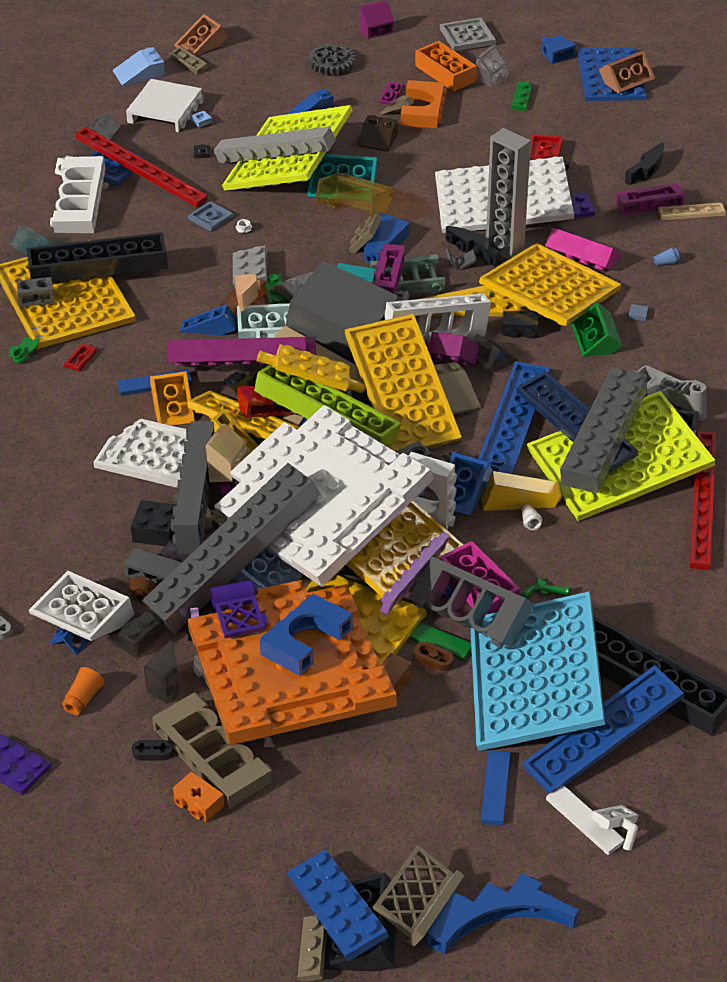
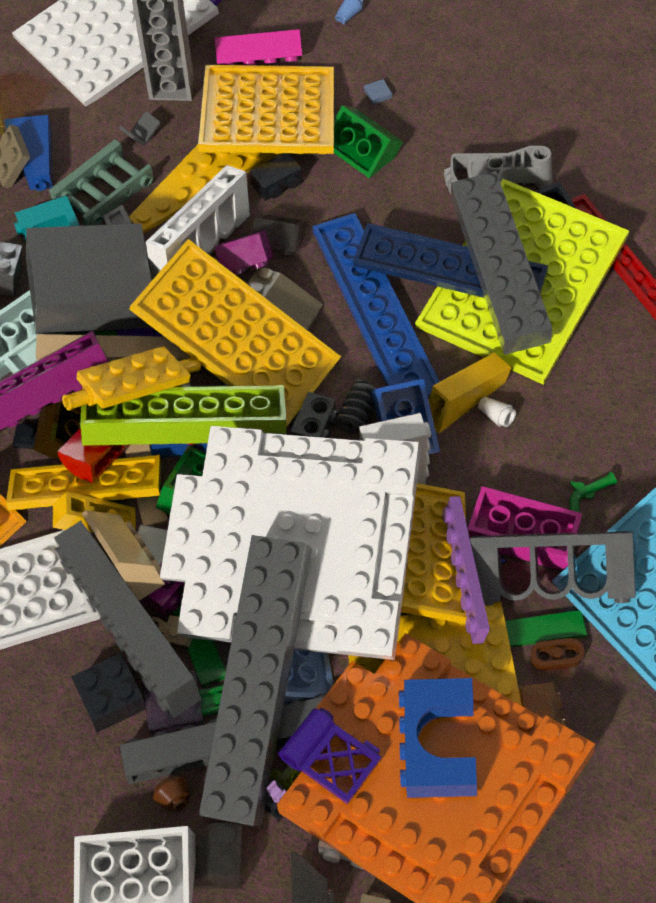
camera: 35 degrees left, 15 degrees up
(395, 257) = (72, 173): magenta brick -> none
(468, 240) = (131, 101): black slope -> none

